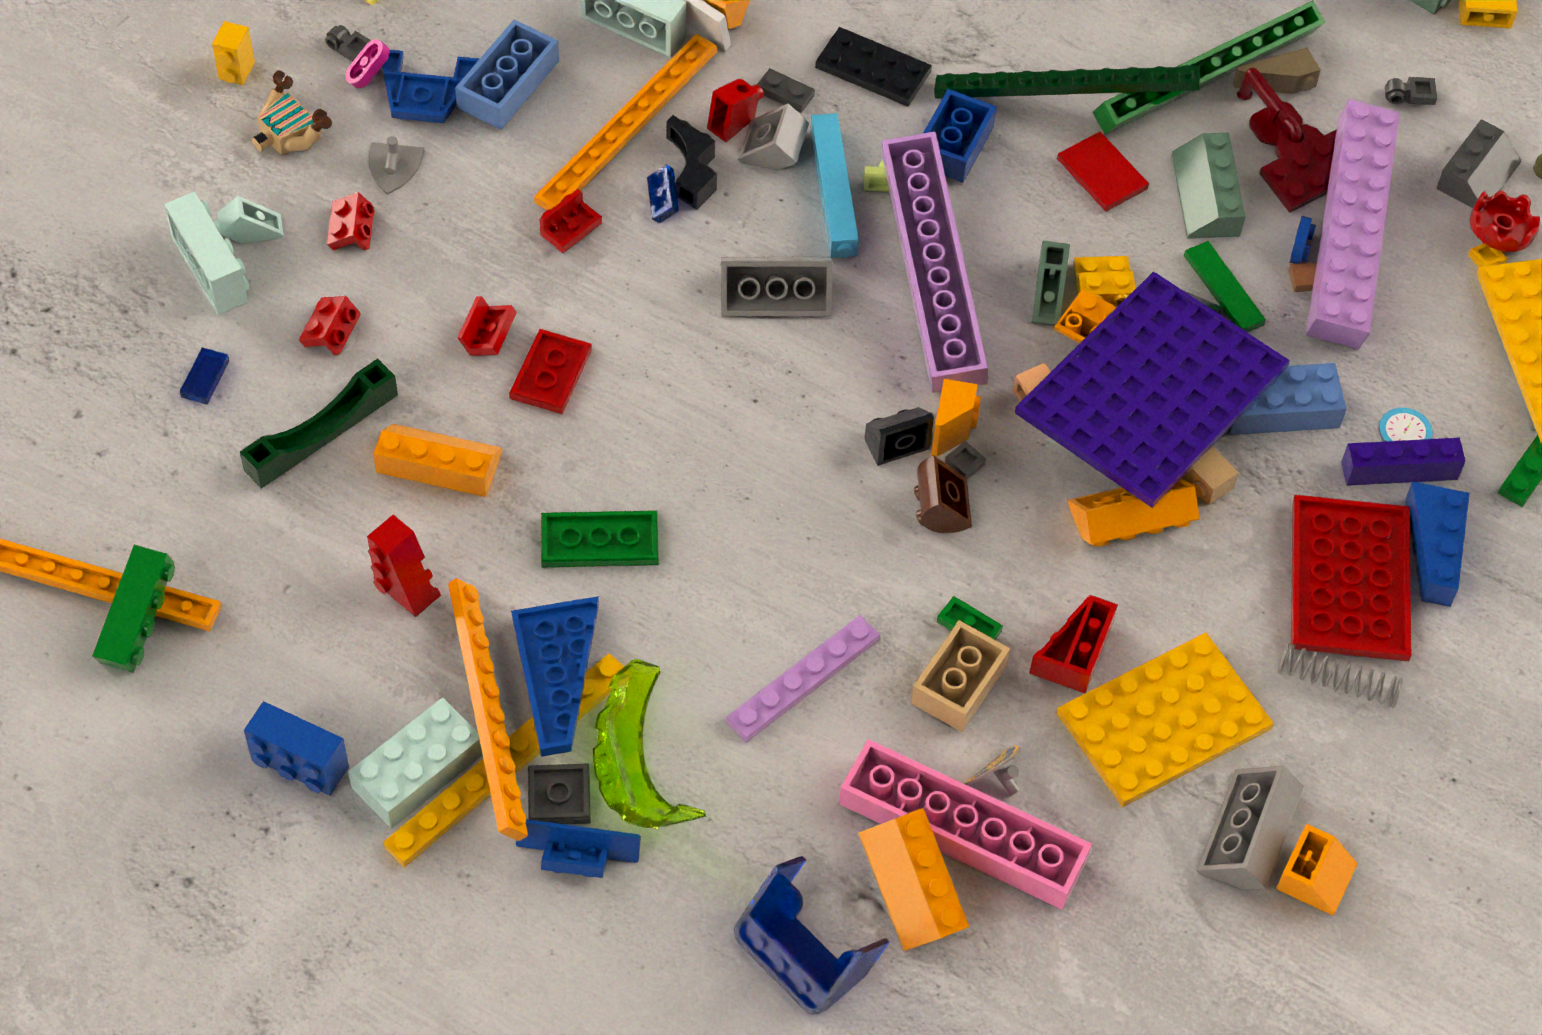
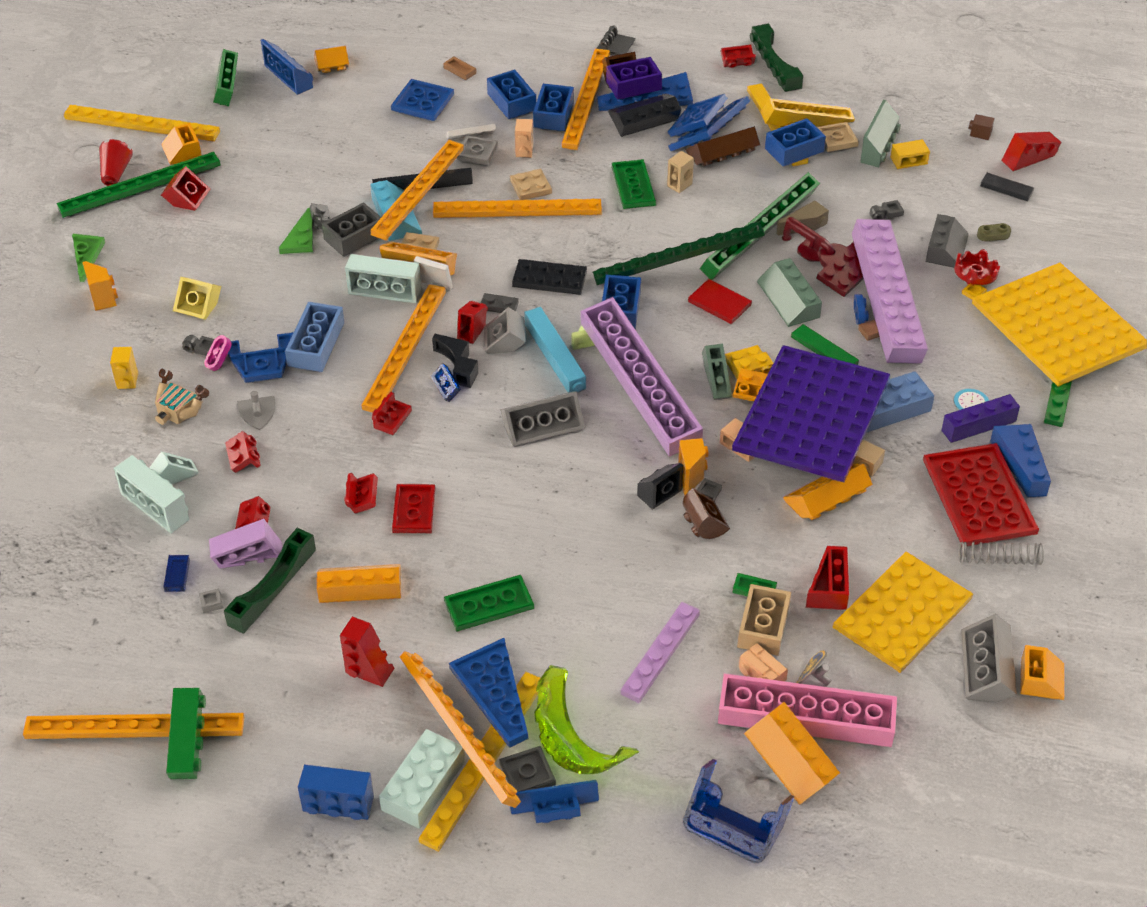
camera: 15 degrees left, 10 degrees down
(235, 428) = (211, 600): none -> light grey tile
(304, 361) = (245, 544): none -> lavender wedge
(930, 742) = (761, 664): none -> light nougat brick

